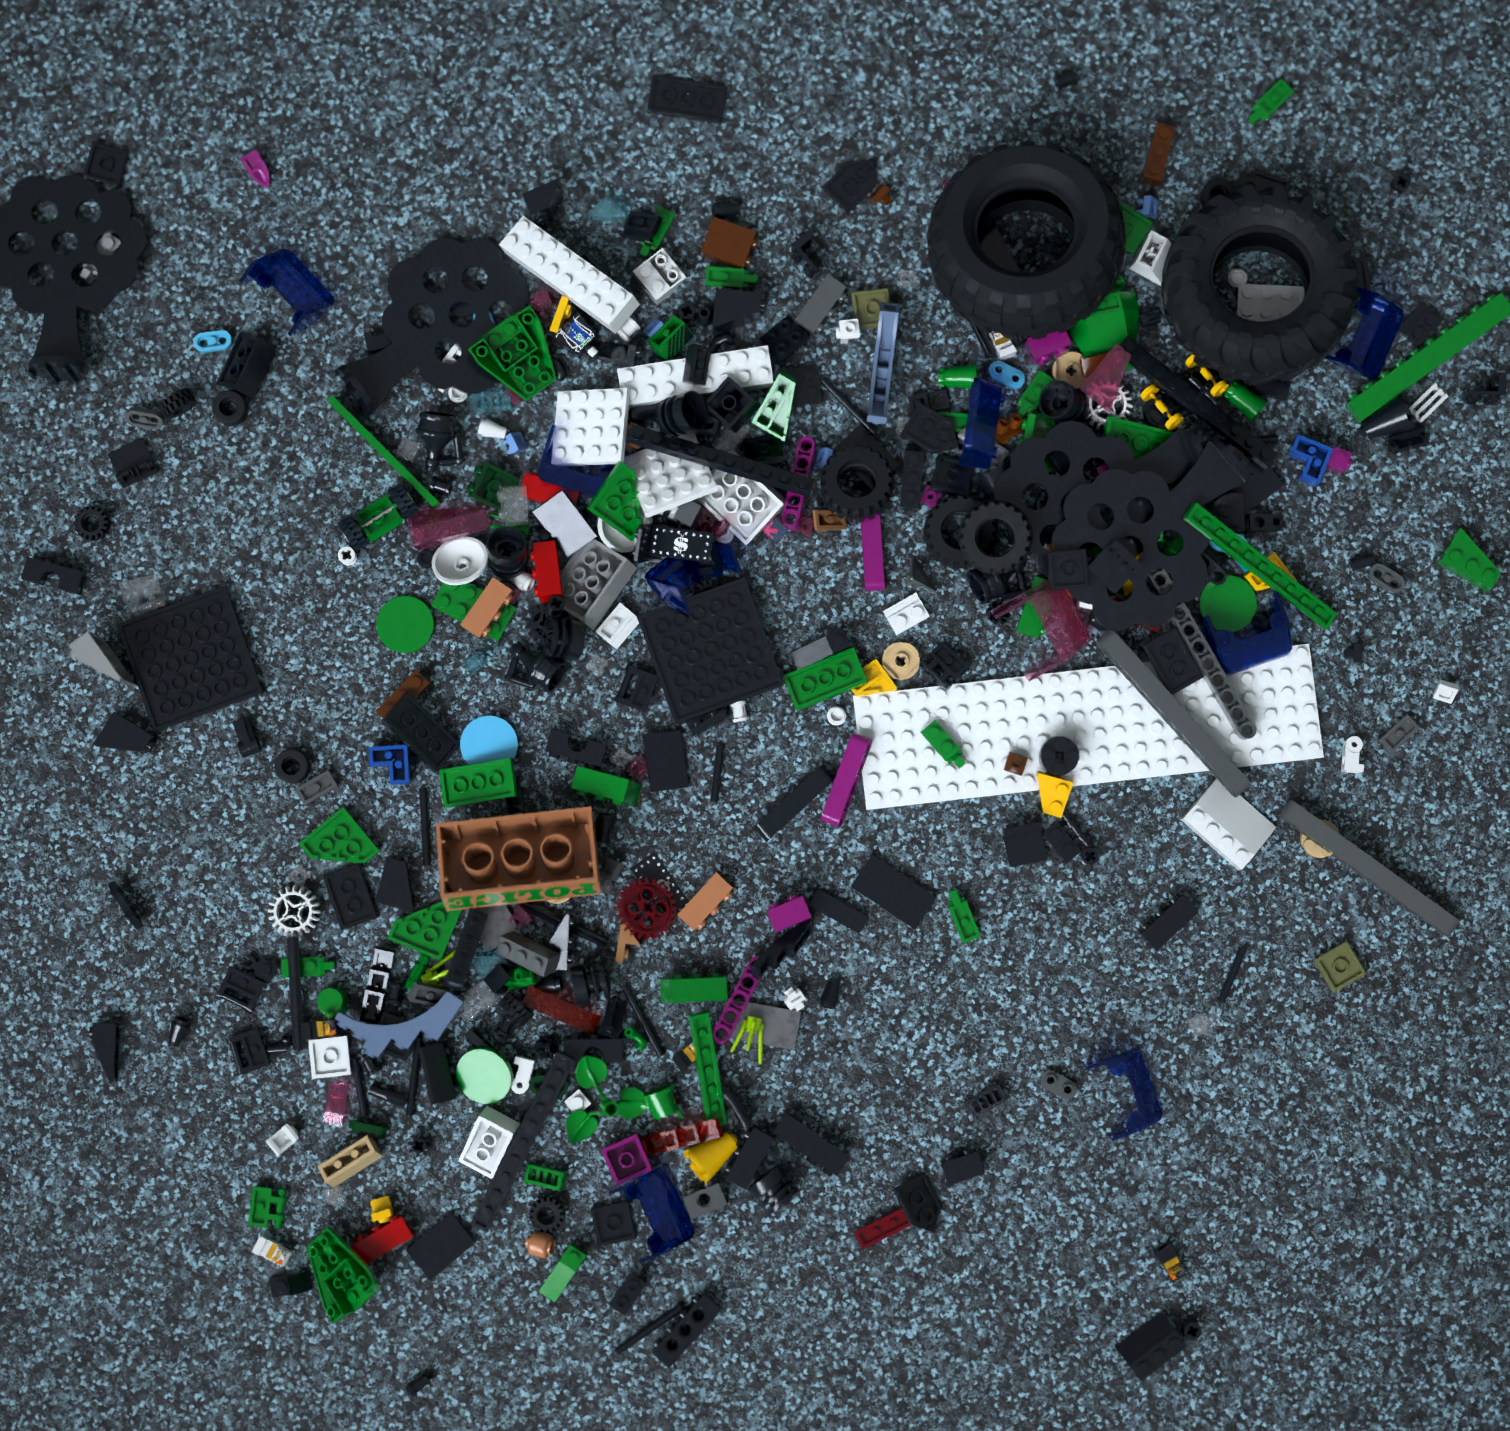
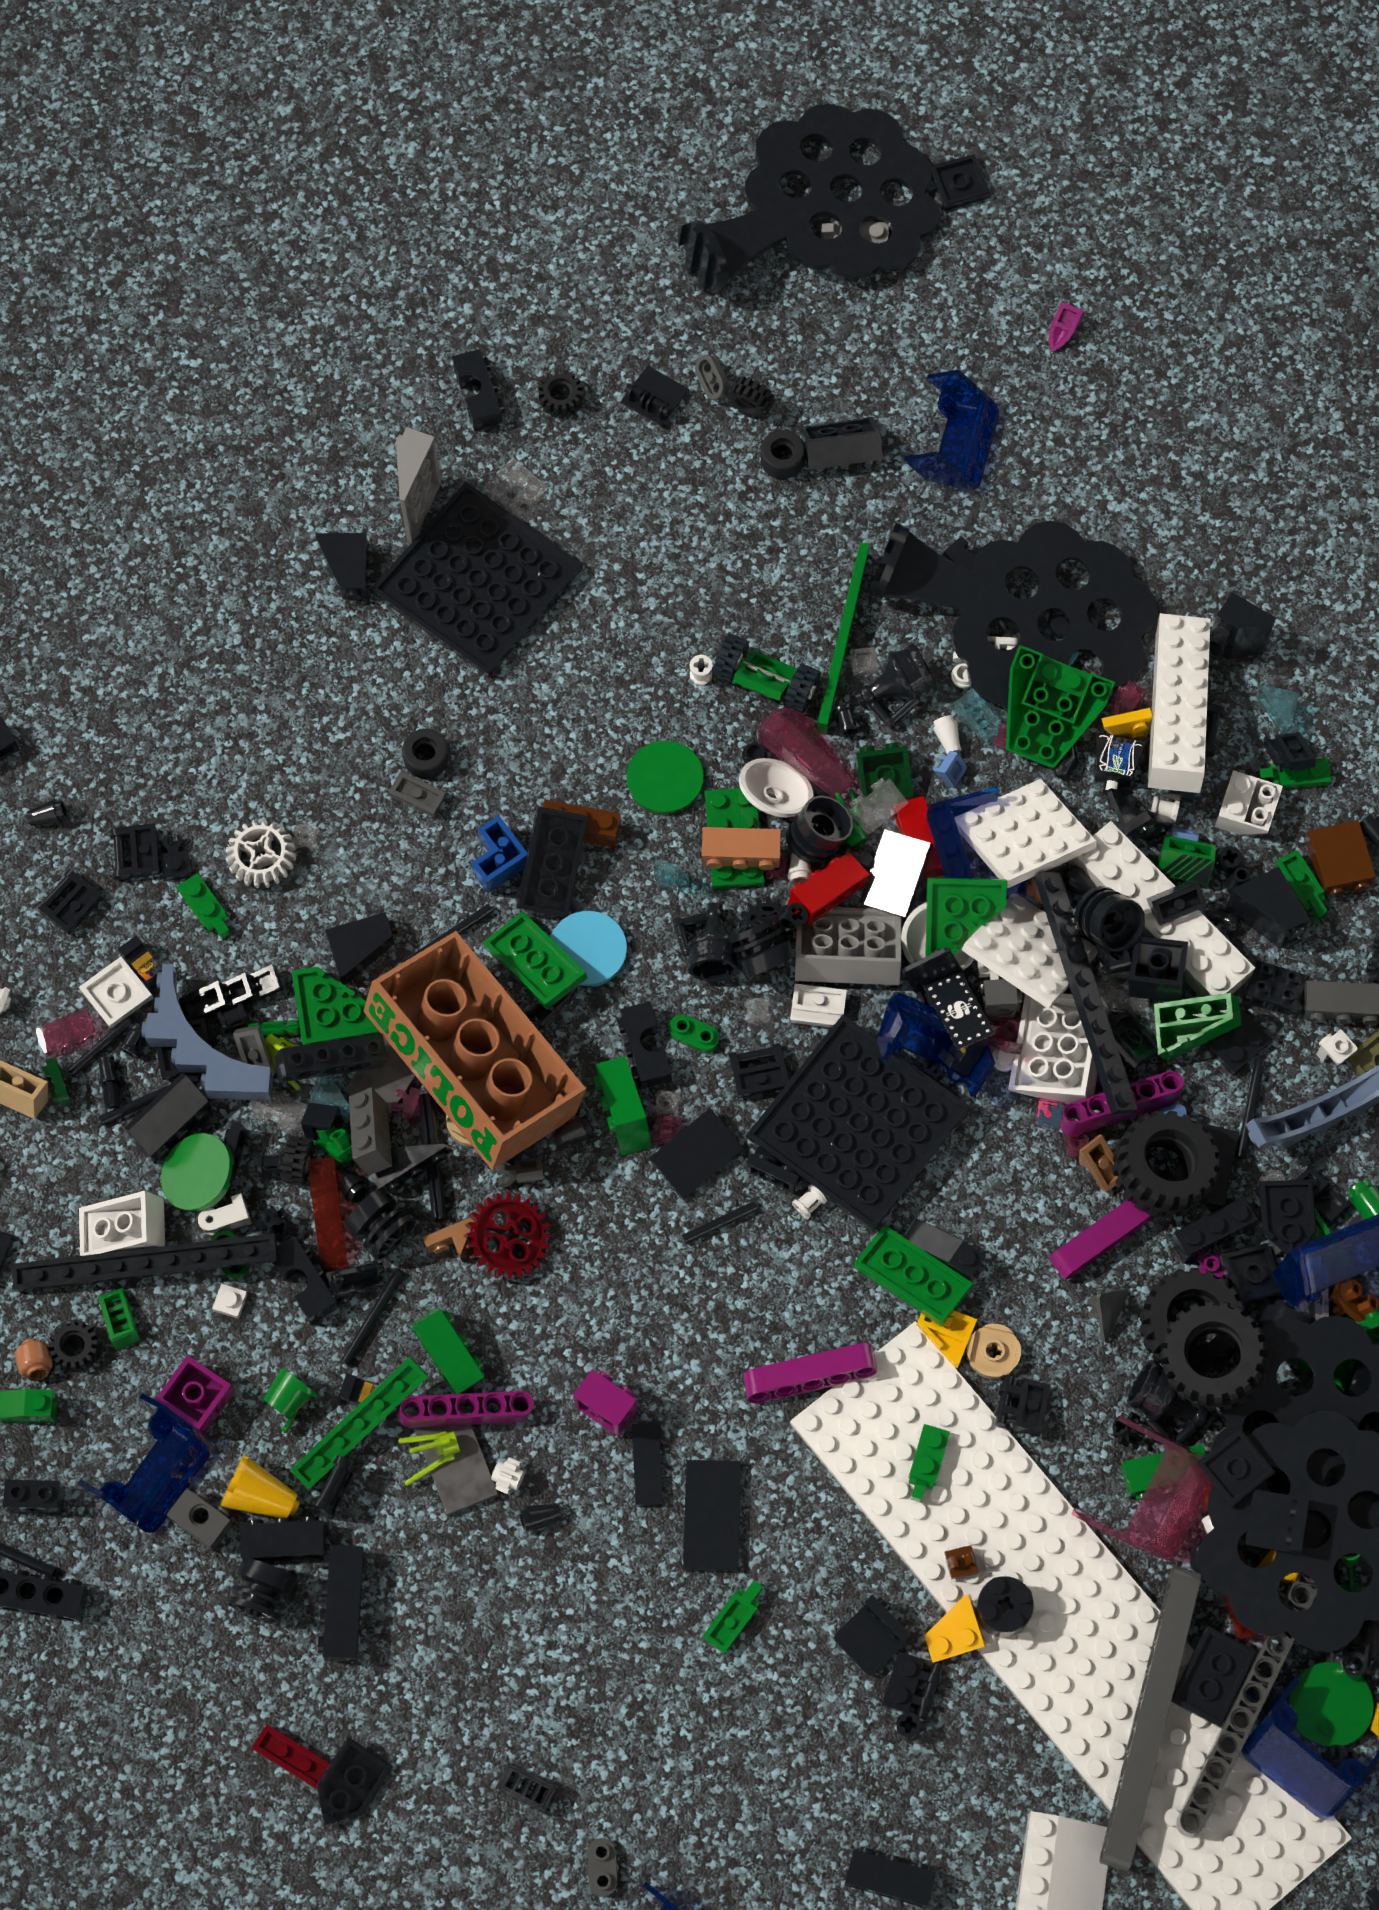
camera: 60 degrees right, 15 degrees down
(130, 913) = (152, 680): black tile -> none
(213, 341) = (846, 395): medium azure plate -> none
(248, 742) = (422, 692): black piece -> none
(282, 1047) = (95, 935): black arm -> none
(295, 993) = (168, 908): black axle -> none
(332, 1001) = (184, 954): green hat -> none
(339, 840) = (373, 854): green plate -> none
(350, 896) = (315, 905): black tile -> none
(419, 1150) = (73, 1158): black gear -> none
(586, 713) = (692, 1034): none -> green plate
(588, 1073) = (204, 1322): green plant -> none
(613, 1223) = (109, 1430): black tile -> none
(636, 1035) = (350, 1318): green arm -> none
(654, 869) = (562, 1219): black sticker -> none
(682, 1136) = (262, 1445): clear red slope -> none
(706, 902) = (559, 1300): nougat brick -> none
(784, 946) = (567, 1423): black slope -> none
(794, 803) = (742, 1331): black beam -> none
(836, 715) = (878, 1317): white plate -> none
(906, 614) = (1053, 1324): white plate -> none
(962, 1167) = (426, 1808): black brick -> none

